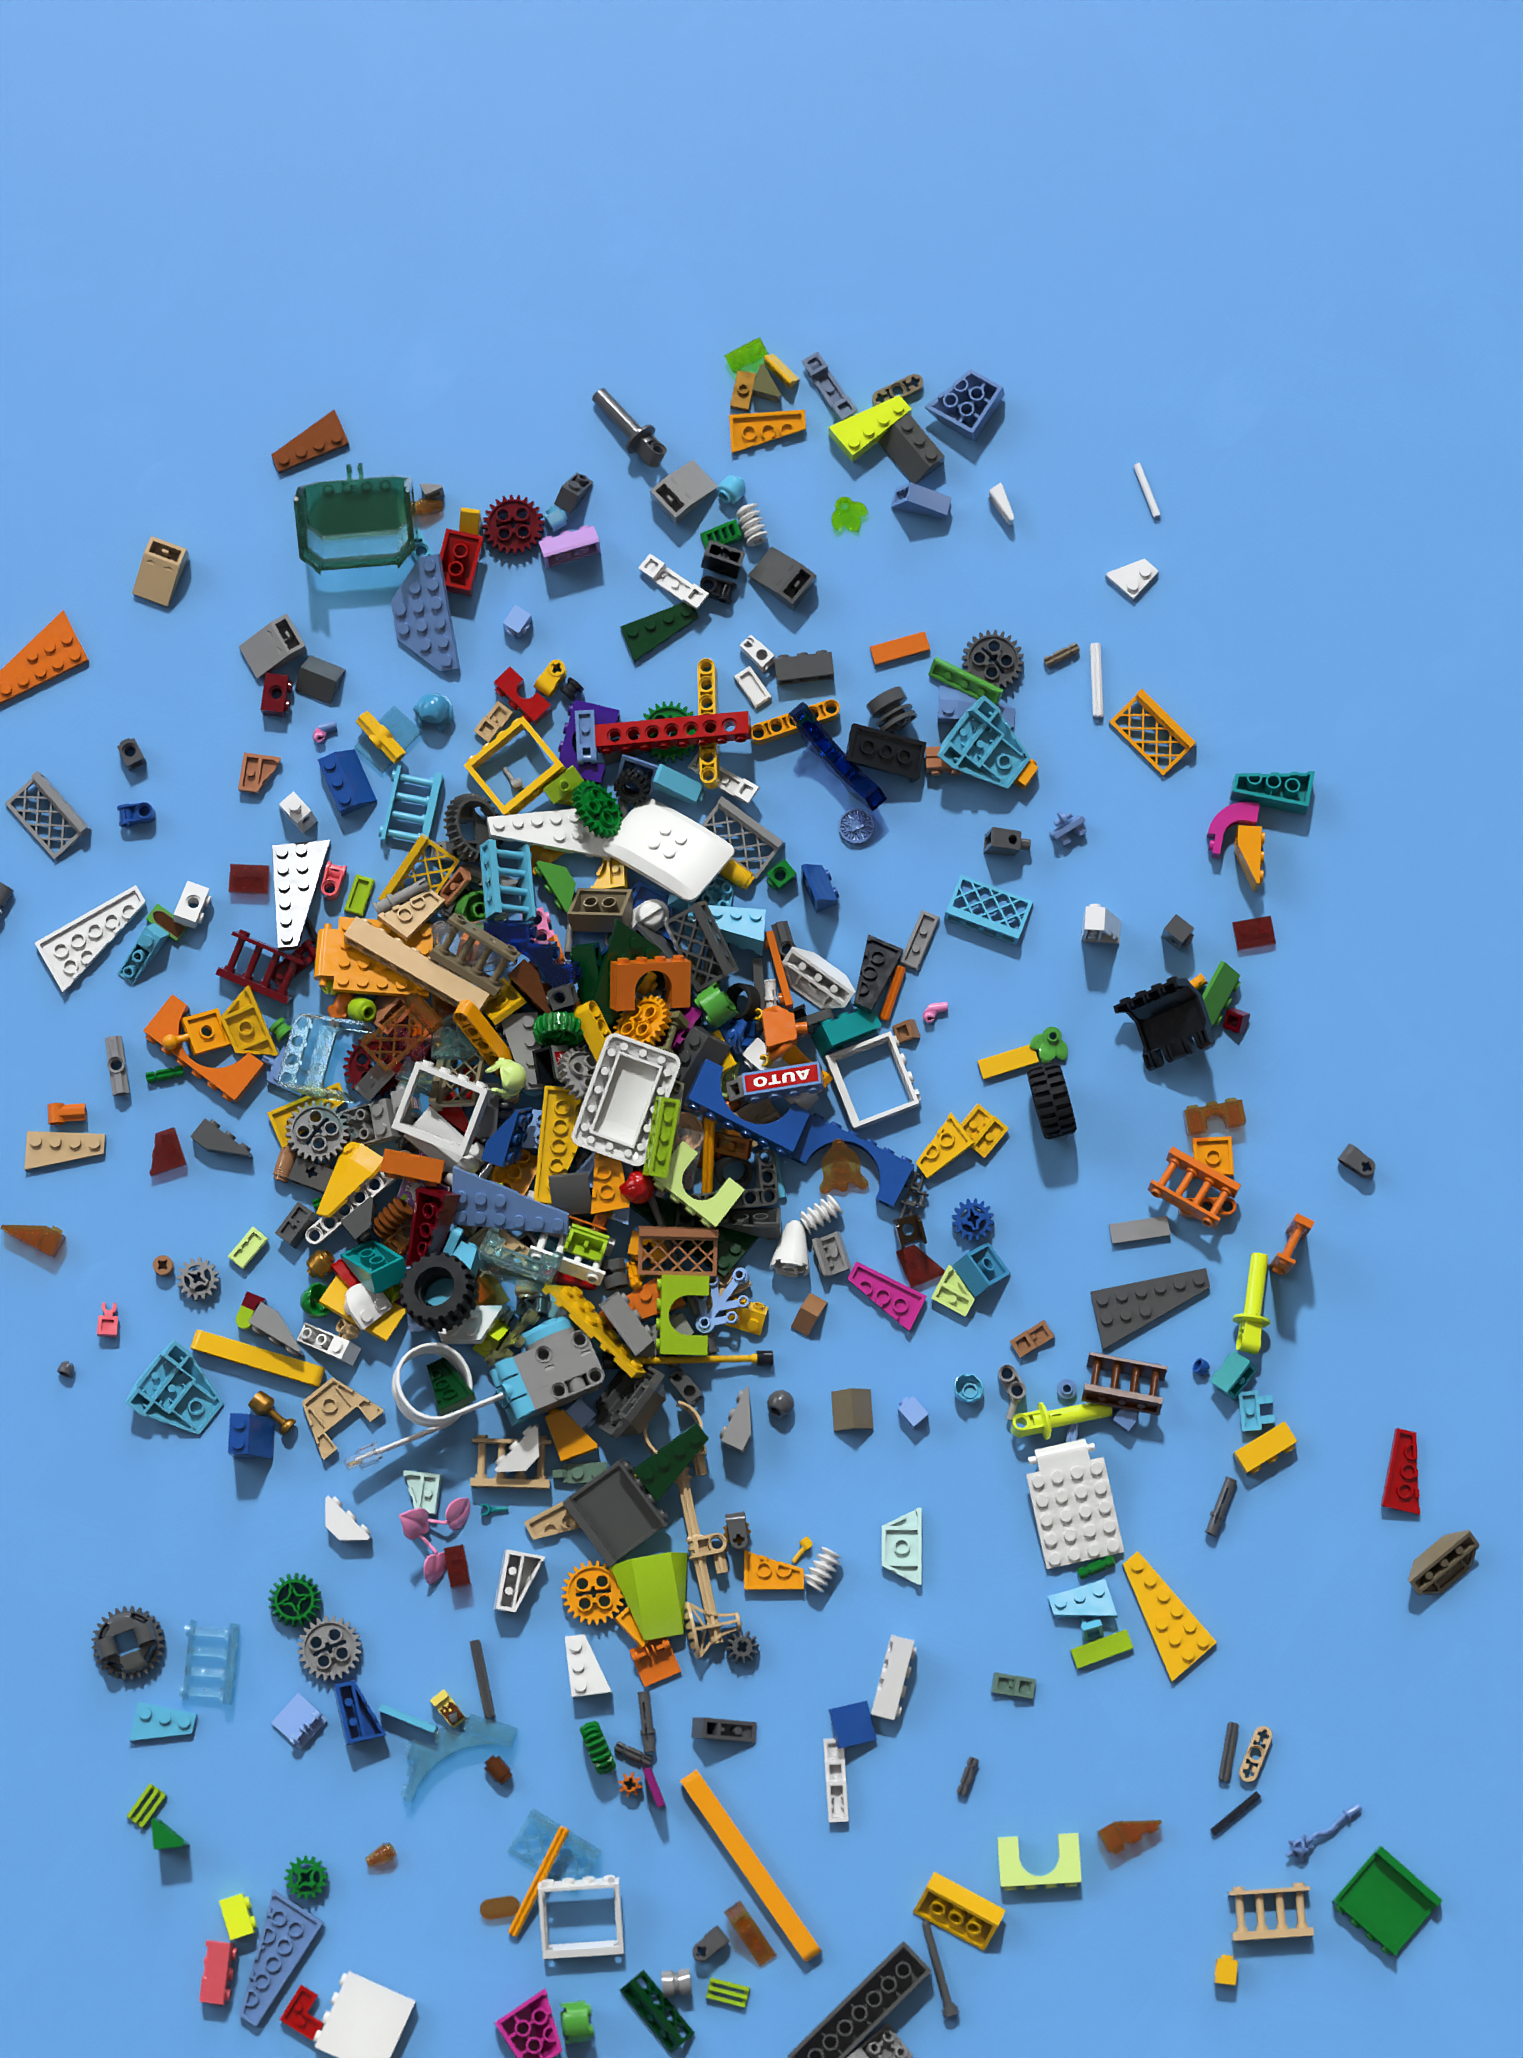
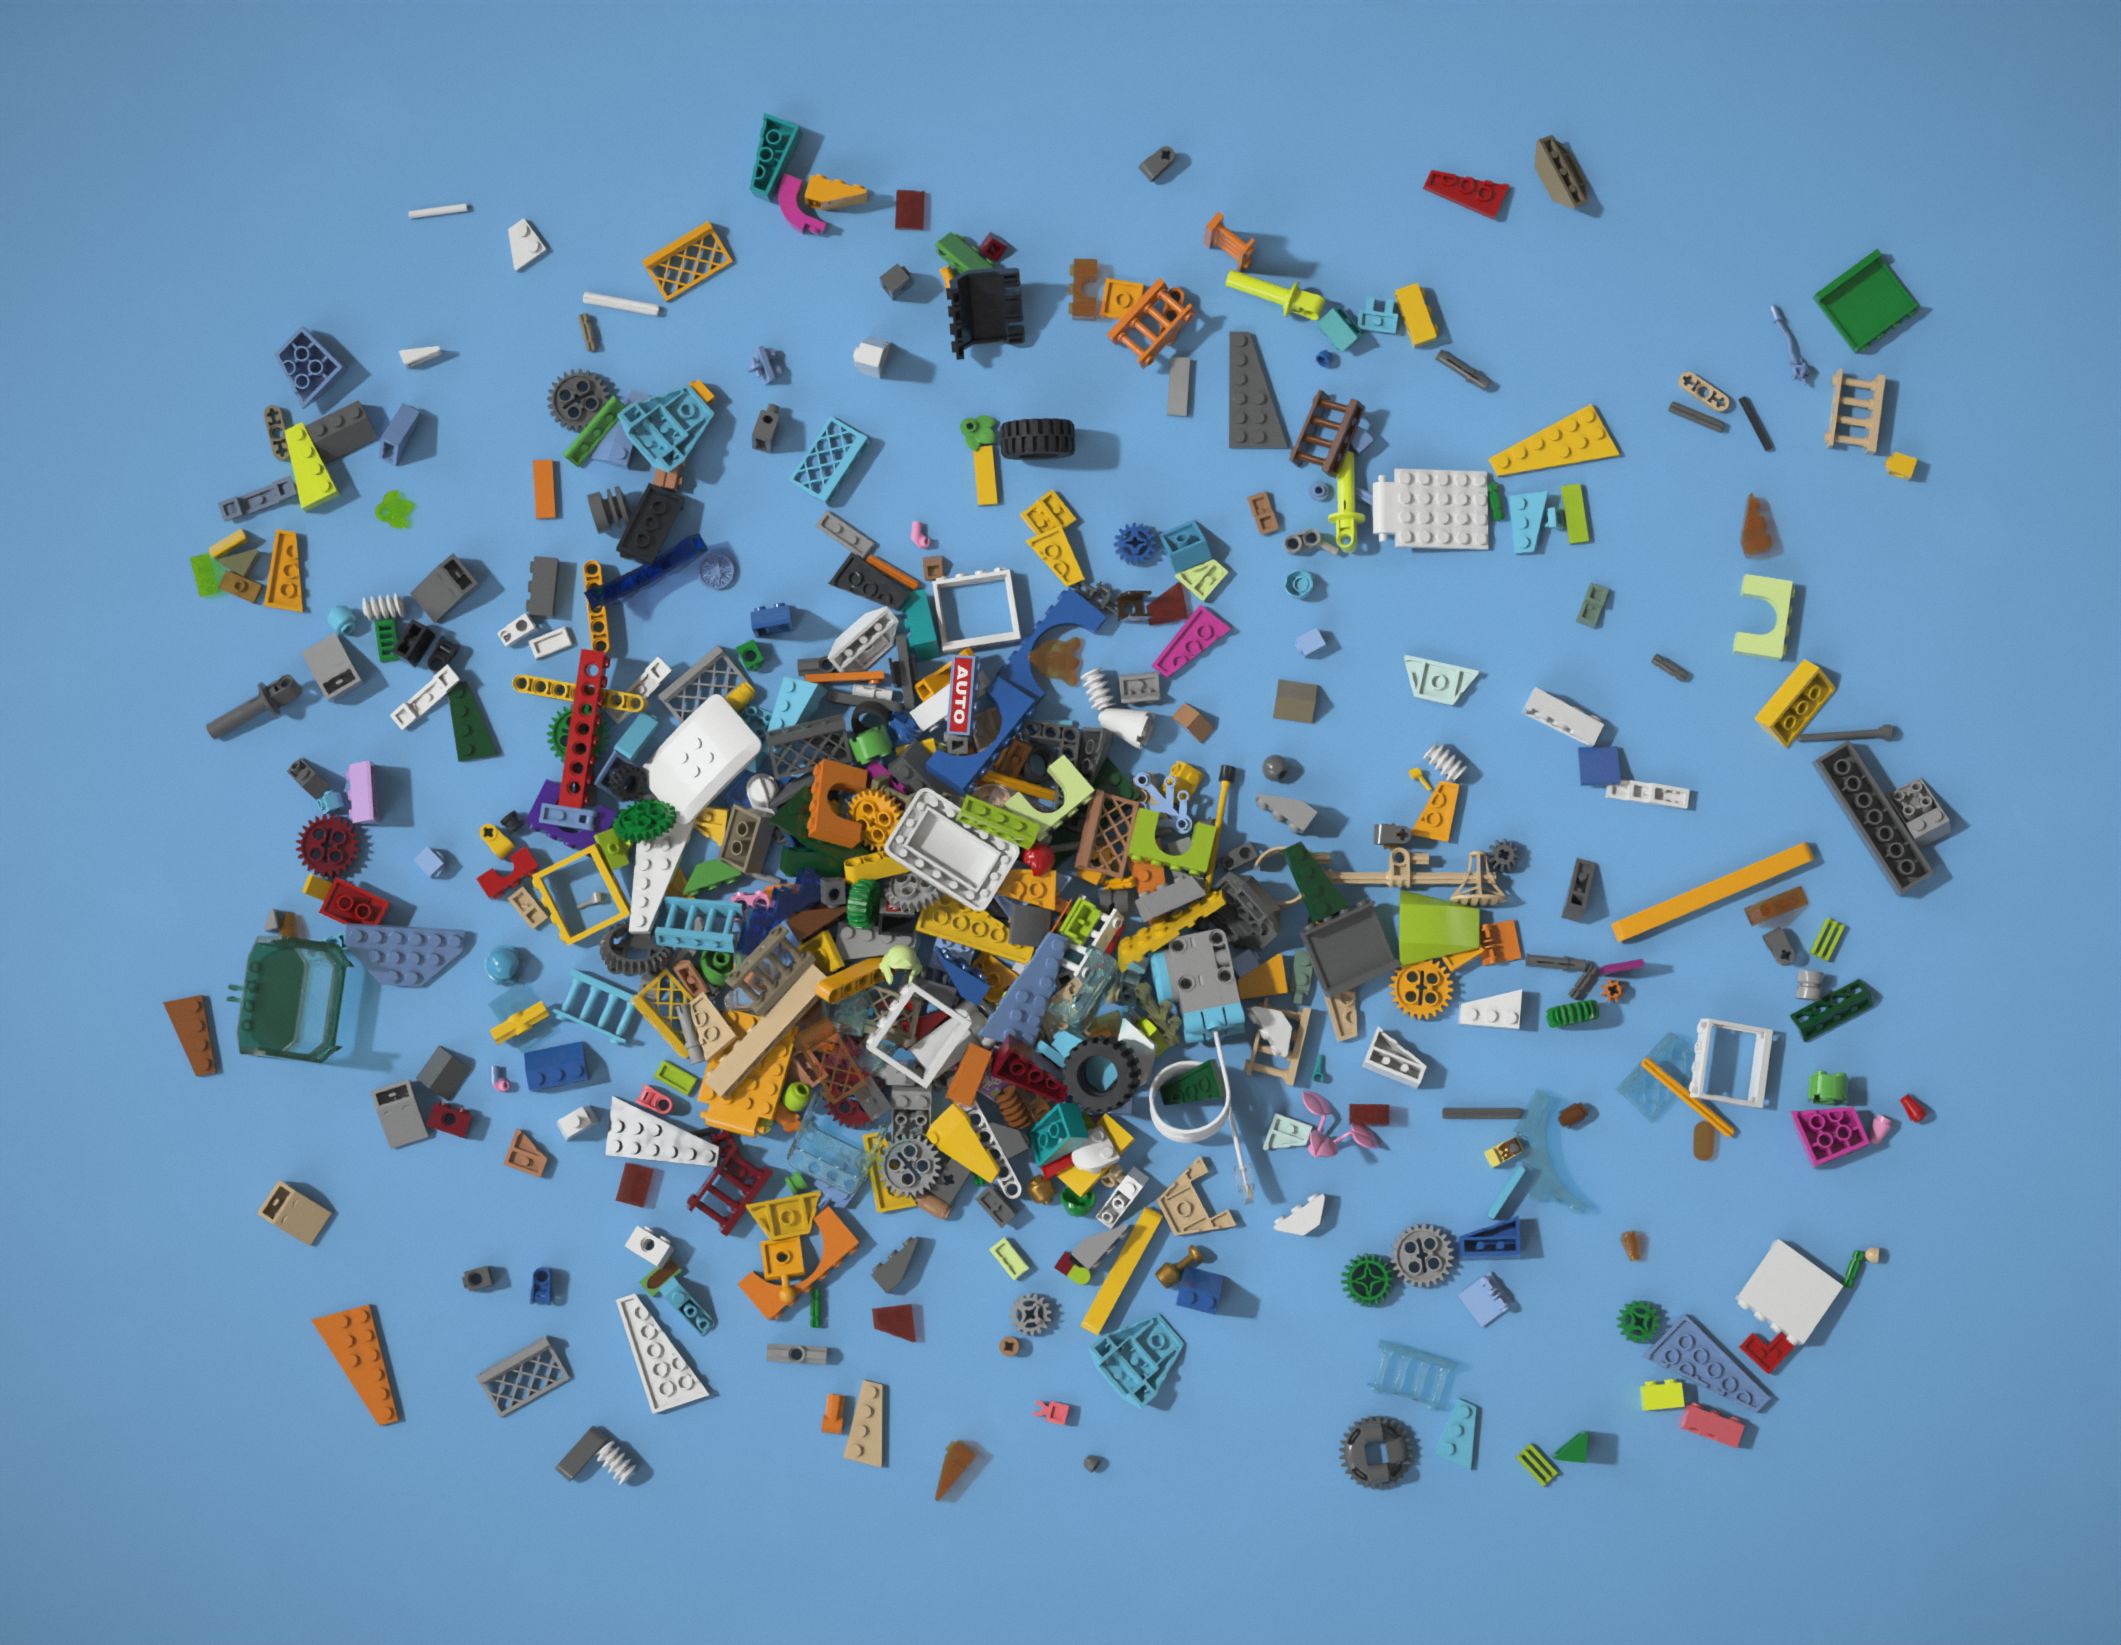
camera: 80 degrees left, 5 degrees up
(779, 1032) = (912, 687): orange torso -> none

